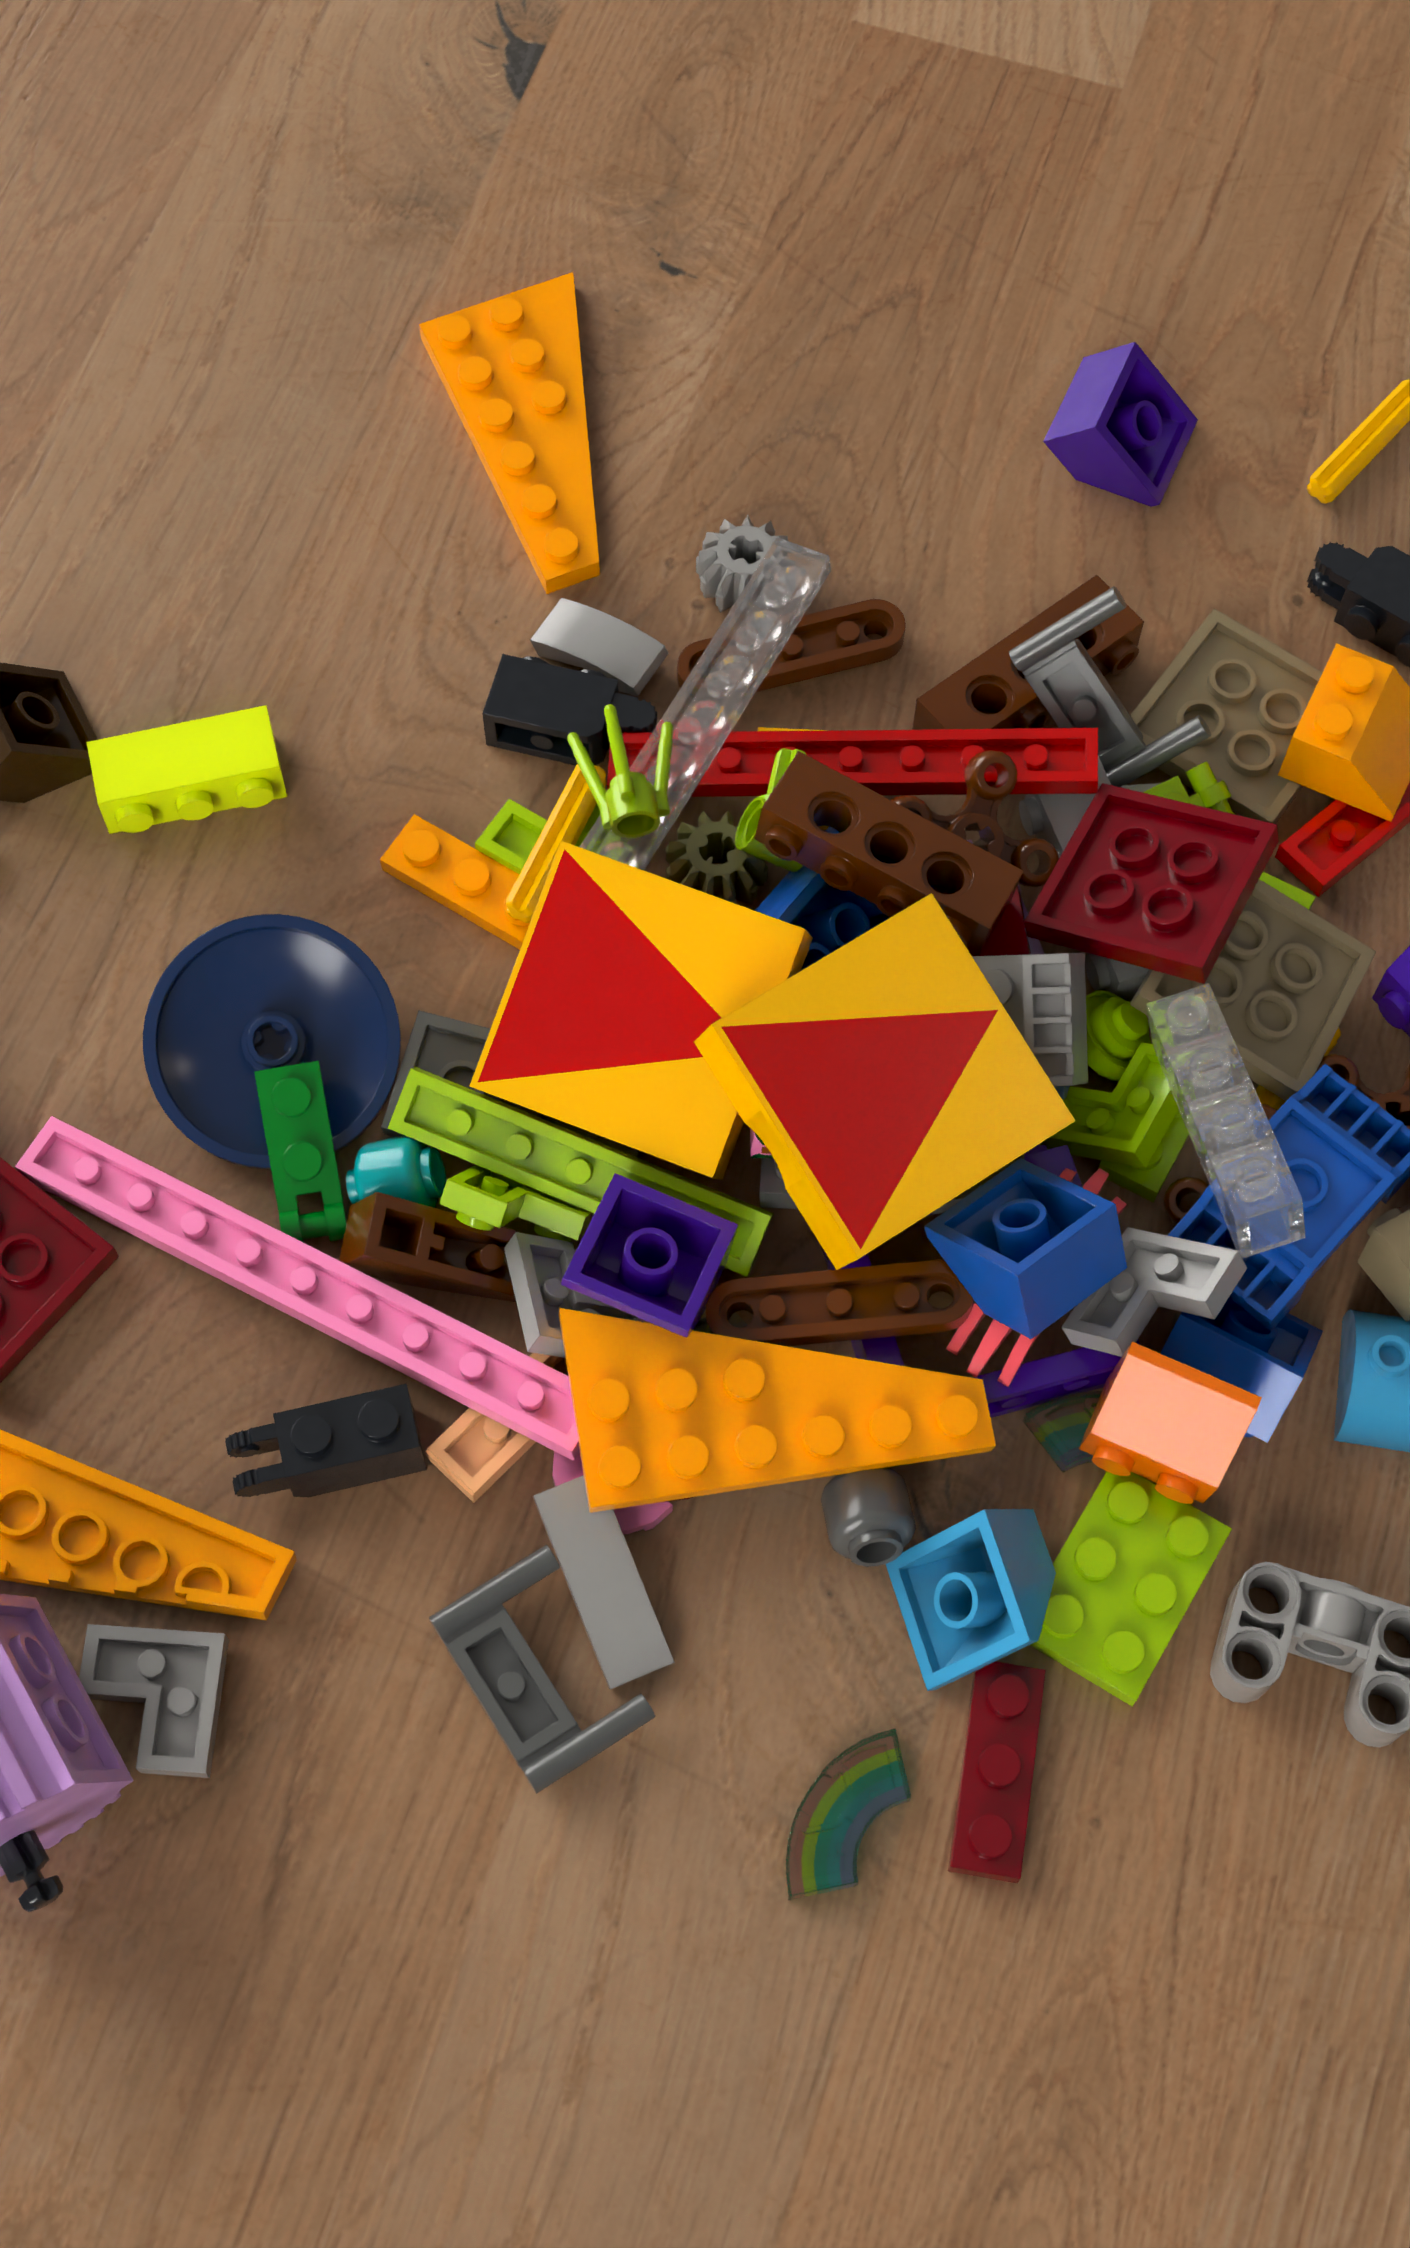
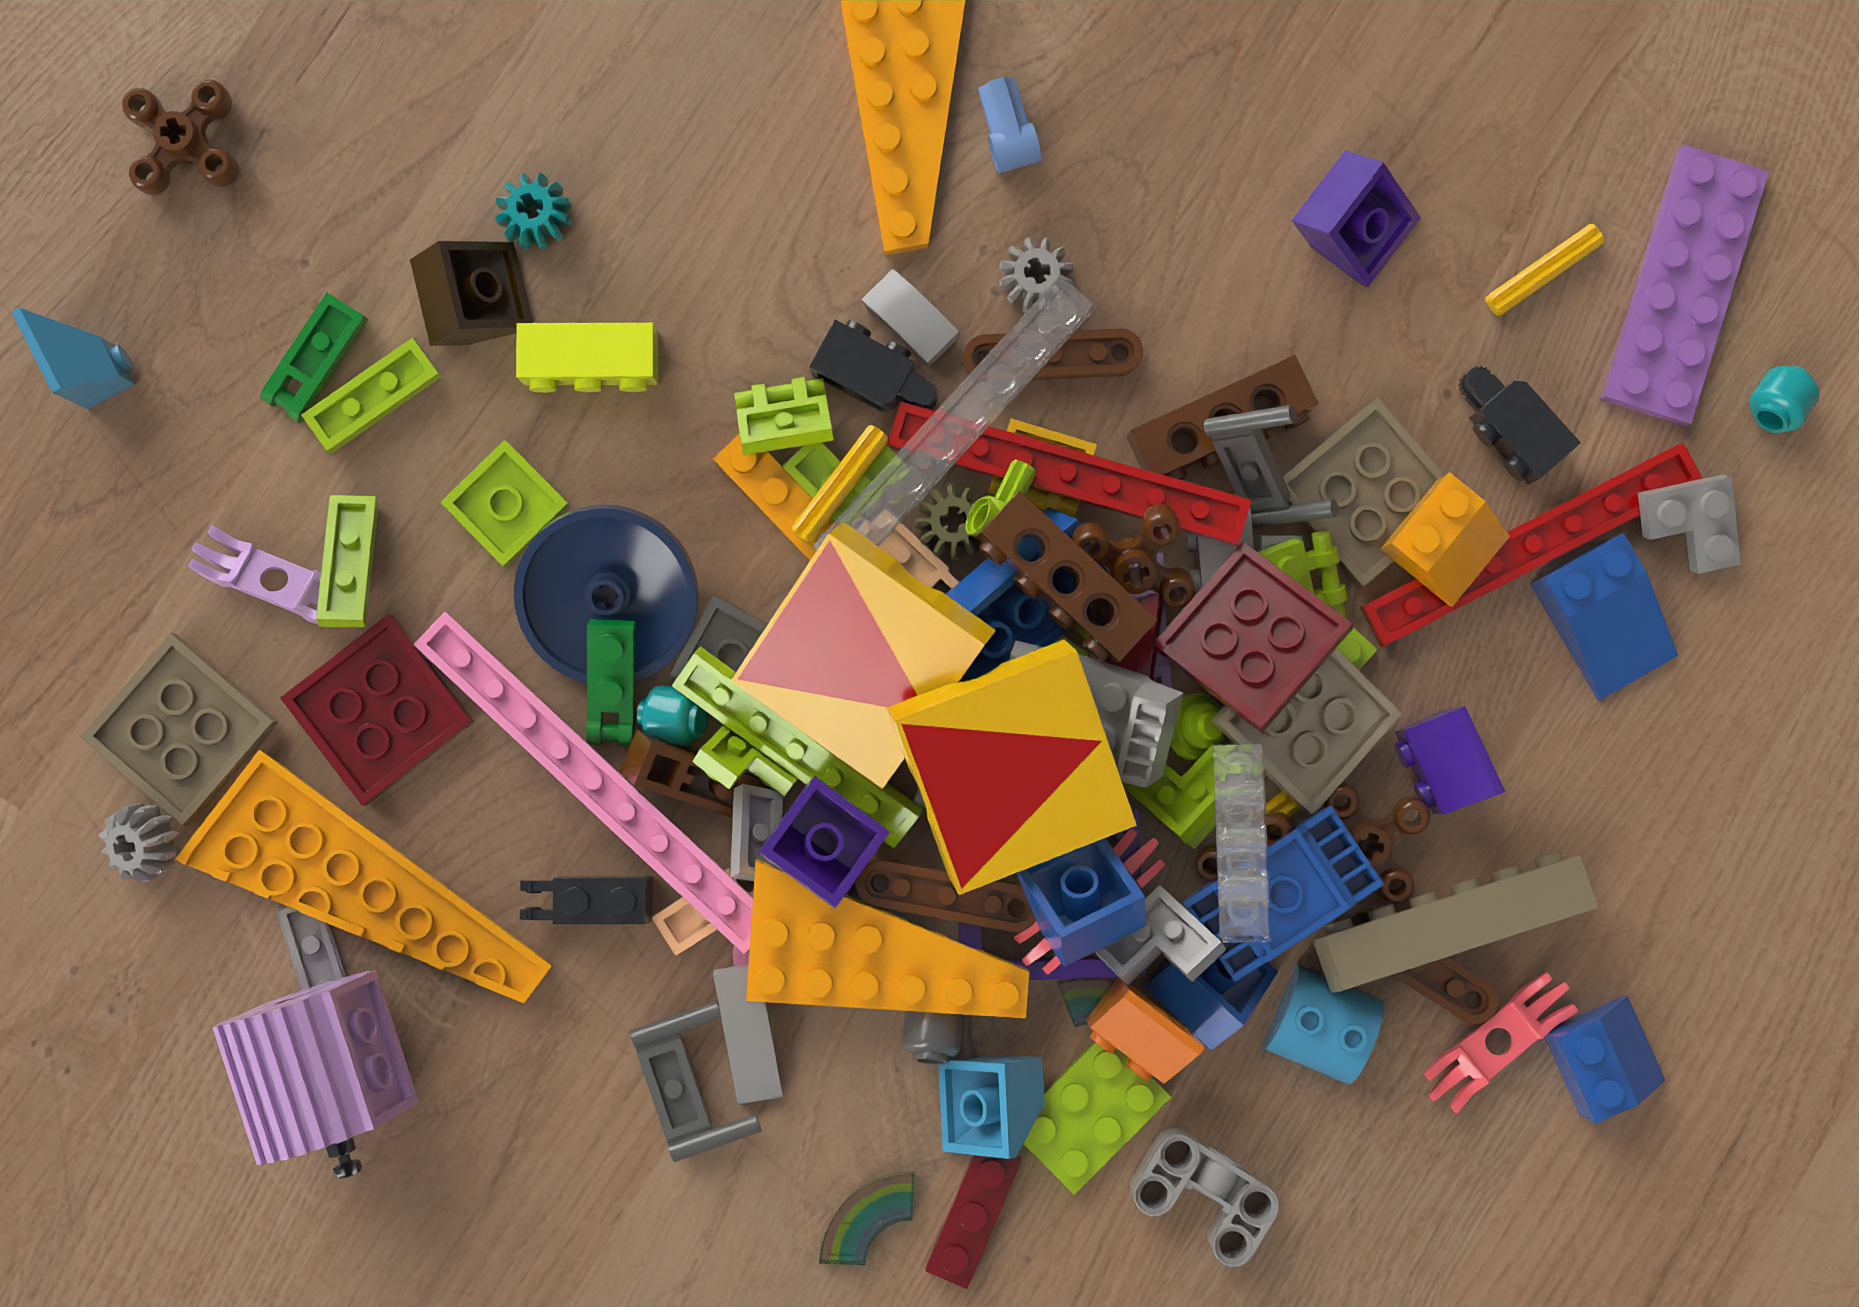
camera: 15 degrees right, 20 degrees up
(83, 625) = (518, 203): none -> teal gear
(104, 969) = (505, 503): none -> lime plate
(175, 1677) = (462, 1034): light grey plate -> none
(463, 783) = (783, 416): none -> lime plate
(631, 803) = (893, 483): lime plant -> none
(669, 428) = (1011, 137): none -> medium blue piece

